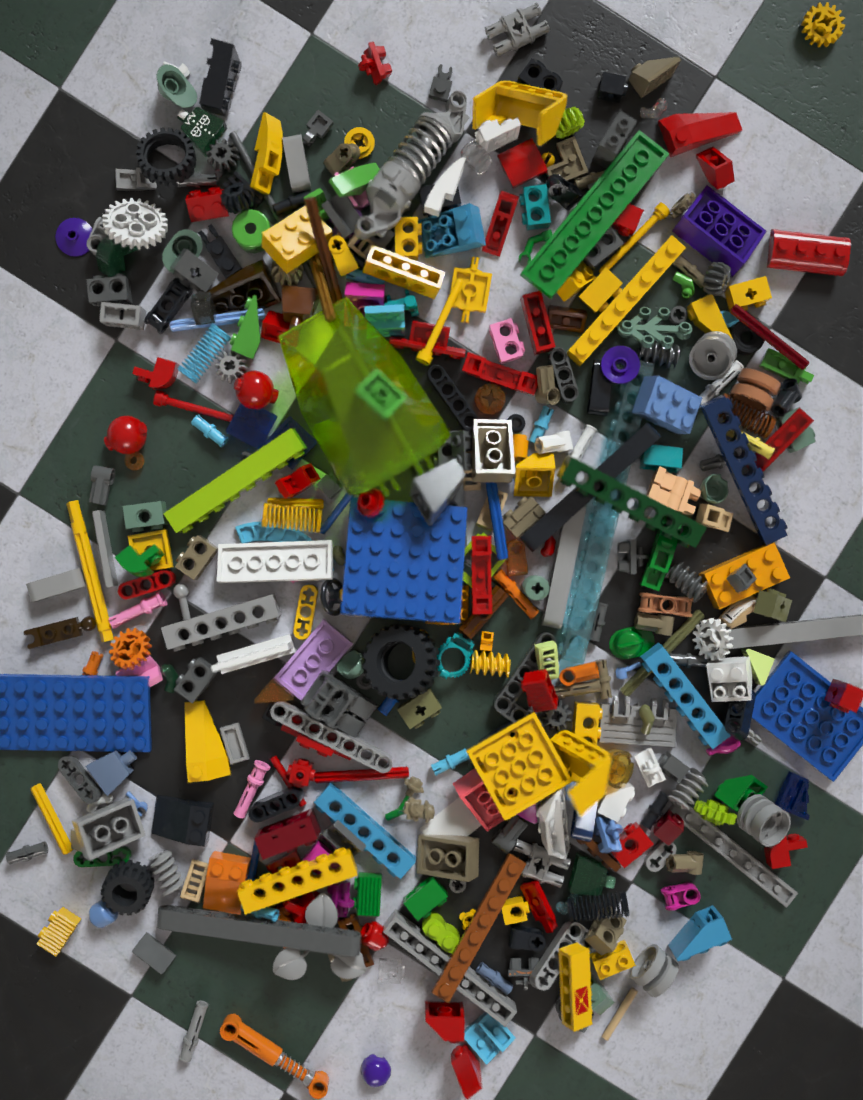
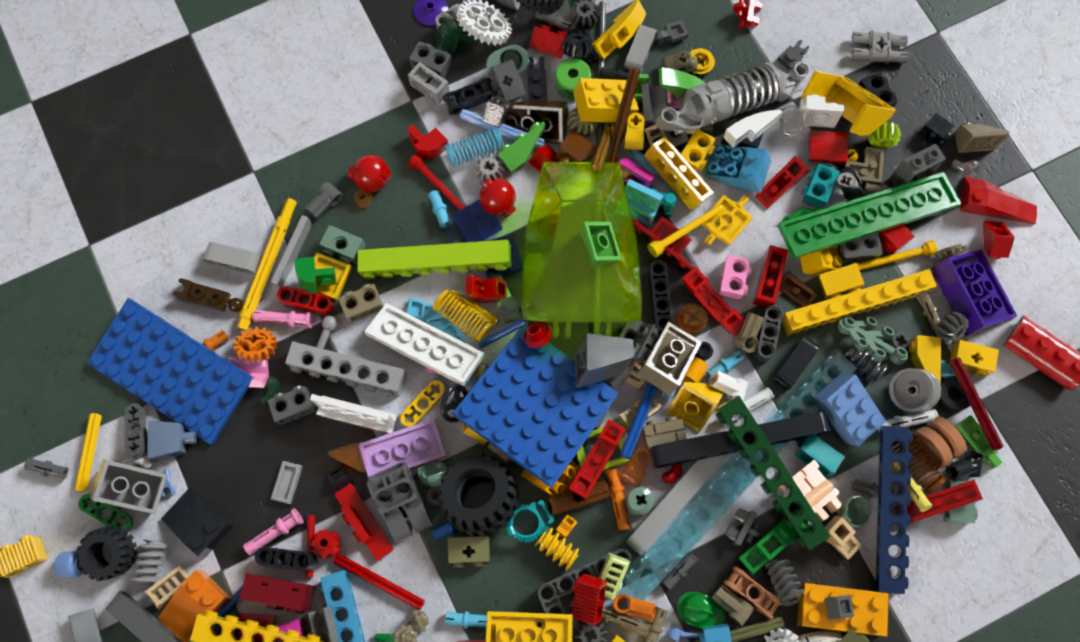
camera: 35 degrees right, 15 degrees down
(204, 749) = (258, 469): yellow wedge -> none
(338, 744) = (367, 519): light grey beam -> none
(624, 356) = (831, 345): dark purple dish -> none
(686, 284) = (921, 319): bright green arm -> none

